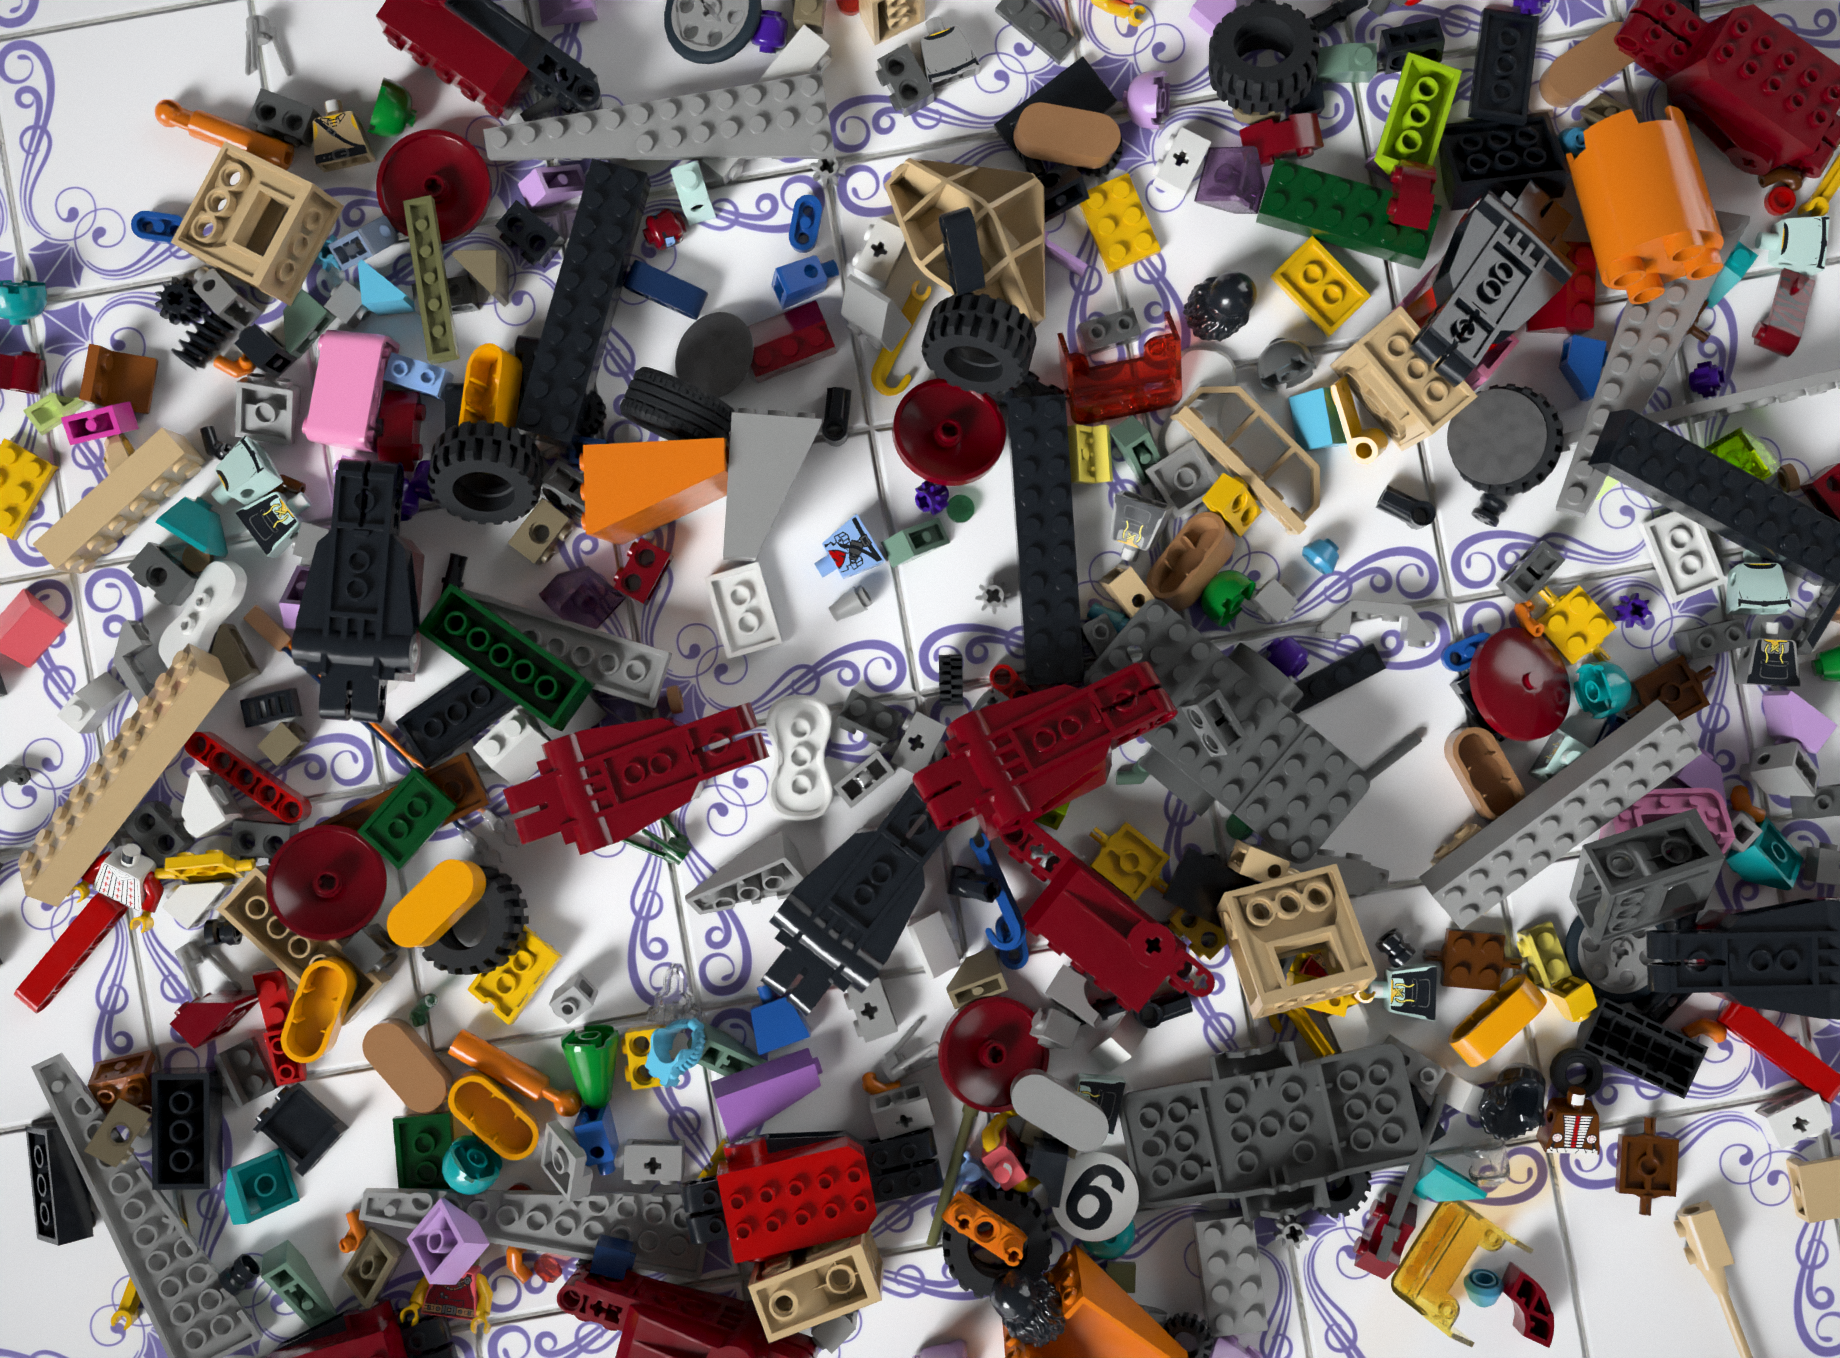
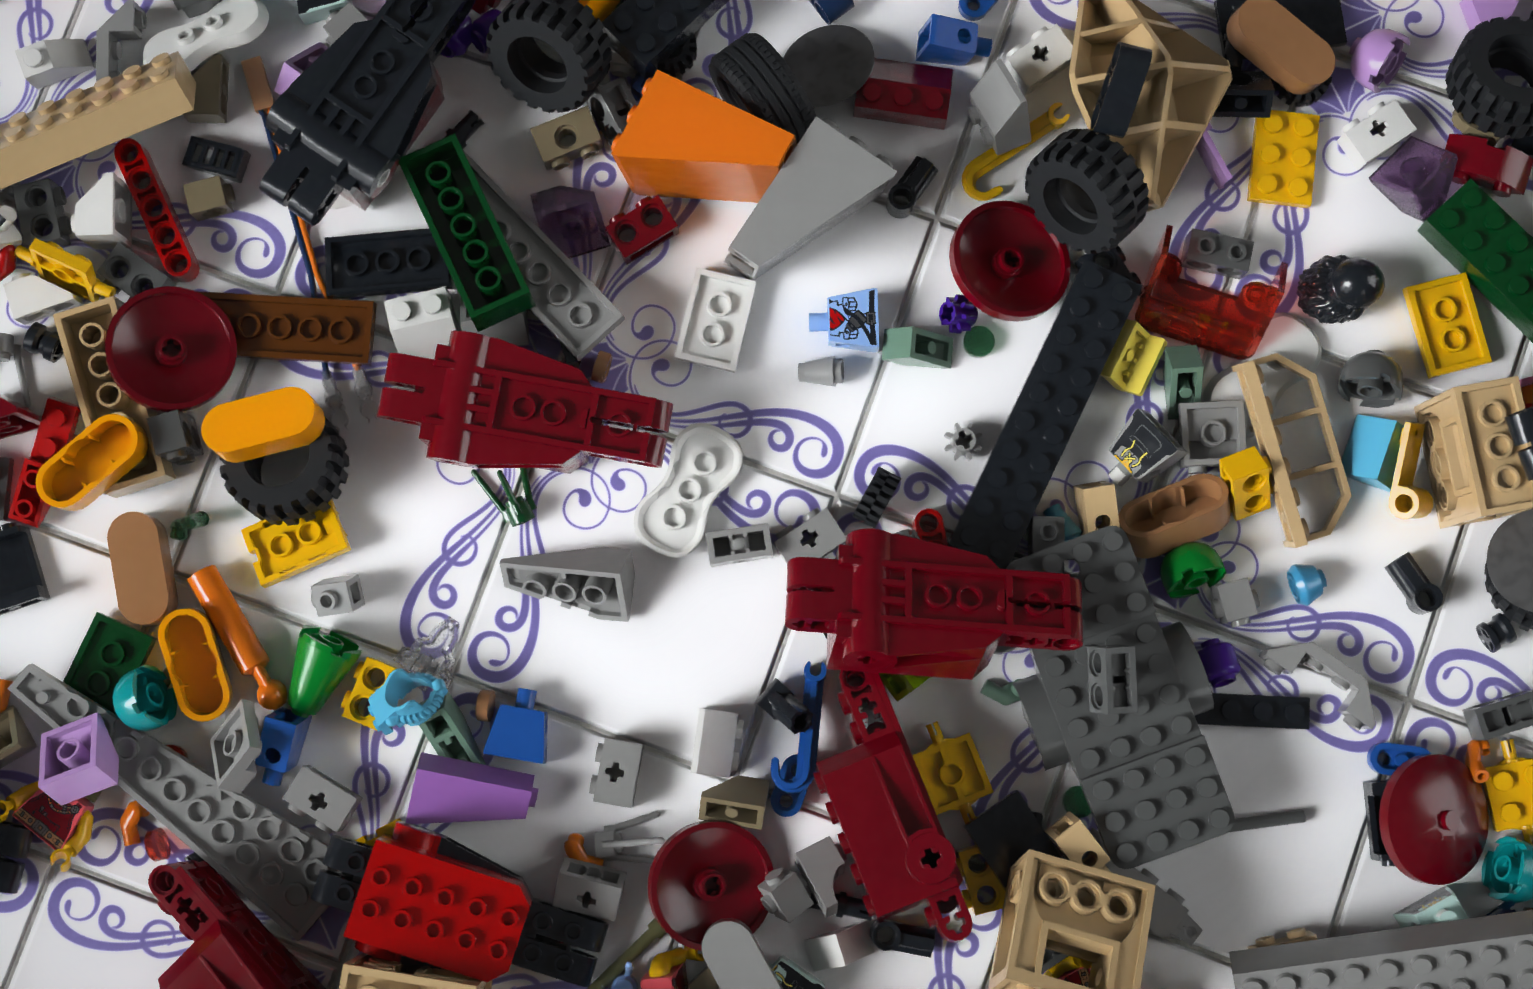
camera: 30 degrees right, 5 degrees down
(407, 818) = (283, 333): dark green plate -> none
(612, 1257) = (227, 867): dark blue brick -> none
(738, 1016) = (485, 705): none -> medium nougat tile
(853, 906) = (659, 657): black piece -> none
(869, 717) = (777, 490): dark grey bracket -> none
(1483, 771) = (1349, 884): medium nougat plant -> none

